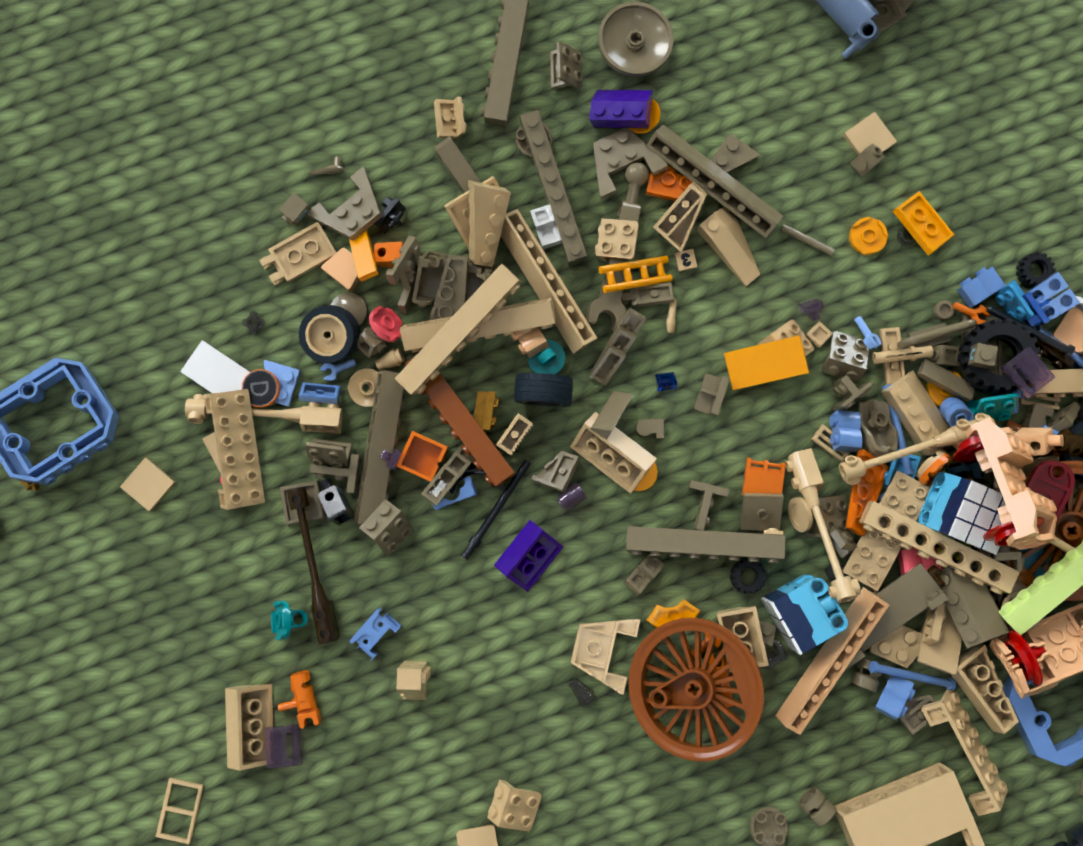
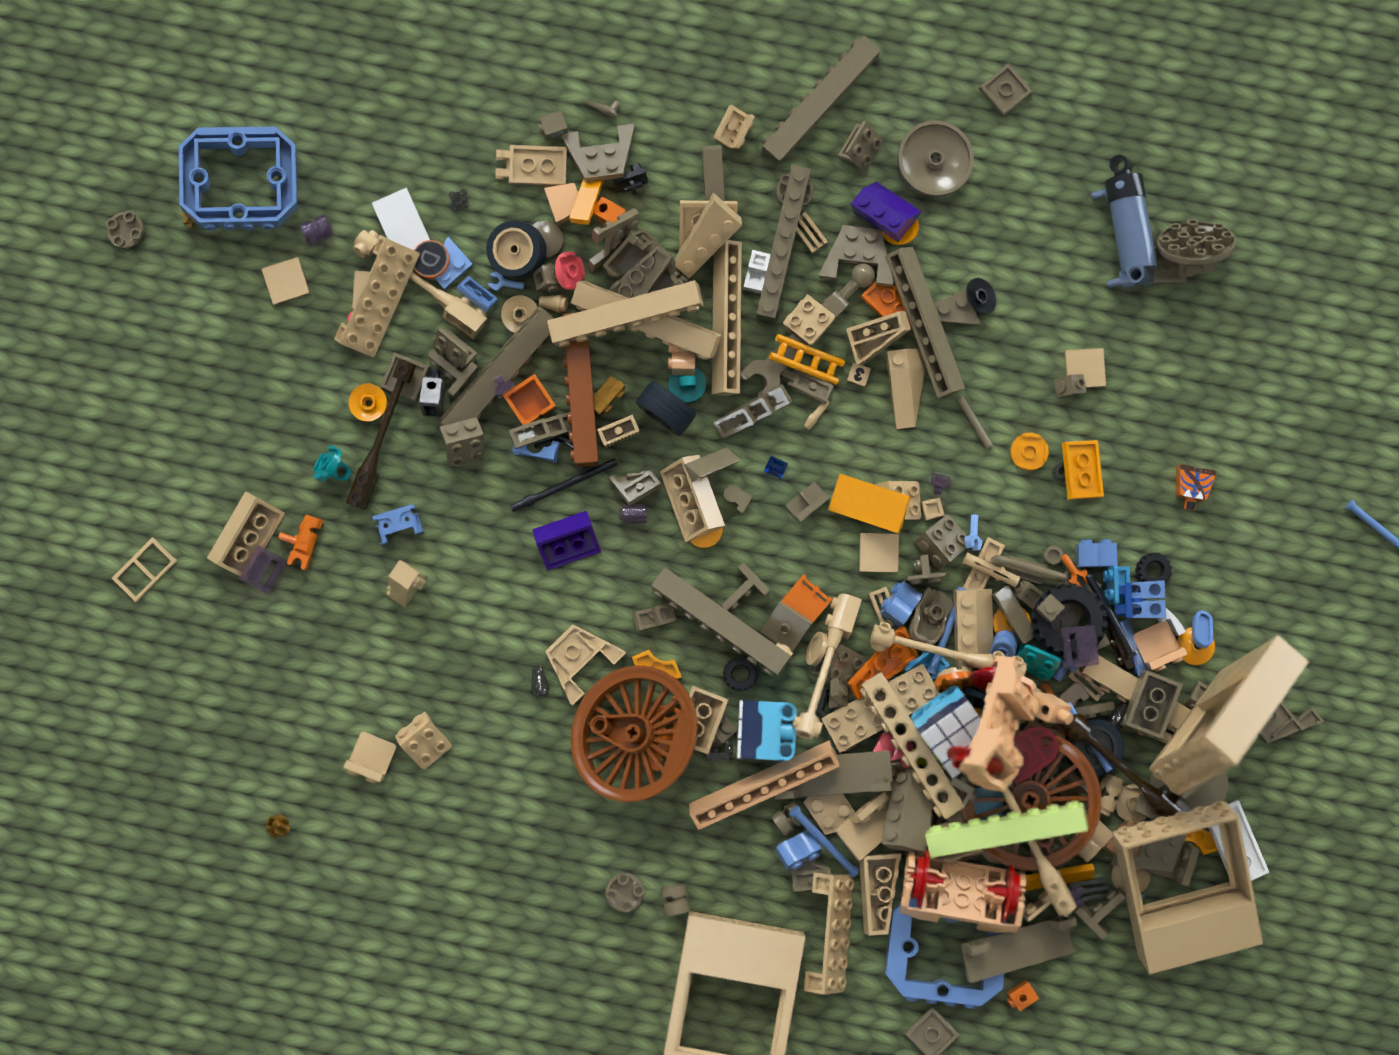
camera: 30 degrees right, 0 degrees up
(147, 423) = (317, 230): none -> clear purple wheel
(274, 548) = (361, 395): none -> light orange dish
(584, 166) = (818, 245): none -> tan tile
(746, 130) = (981, 296): none -> black dish
(798, 399) = (878, 552): none -> tan tile
(1022, 178) = (1193, 484): none -> torso

